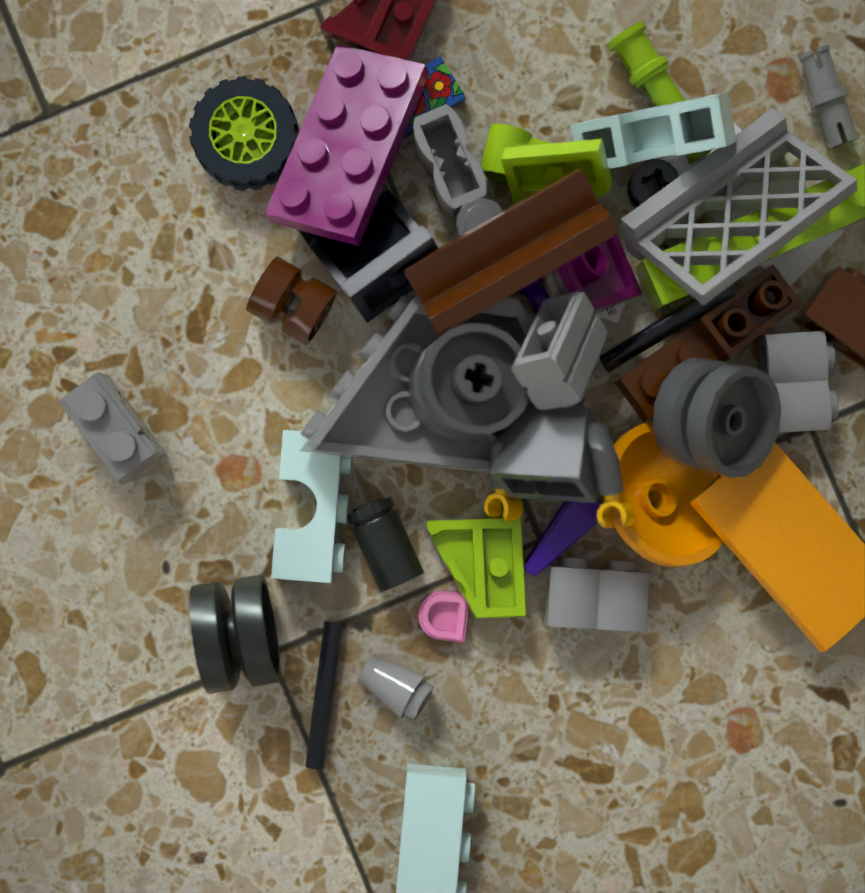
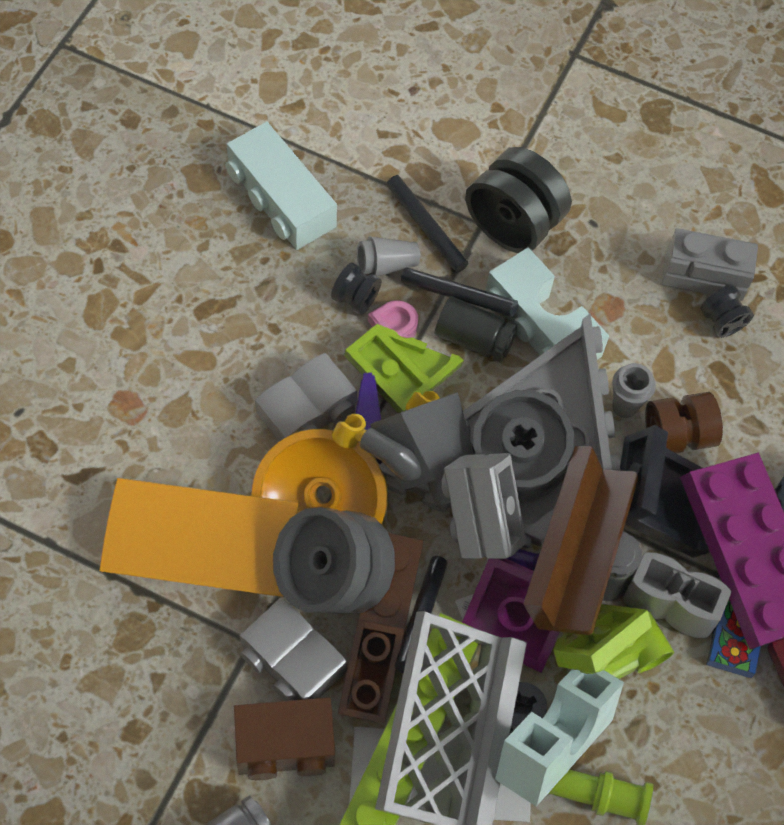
camera: 130 degrees right, 25 degrees down
(142, 370) = (727, 311): none -> black wheel
(297, 358) = (632, 389): none -> light grey cone
(368, 591) = (460, 291): none -> black bar
(456, 675) = (356, 288): none -> black wheel

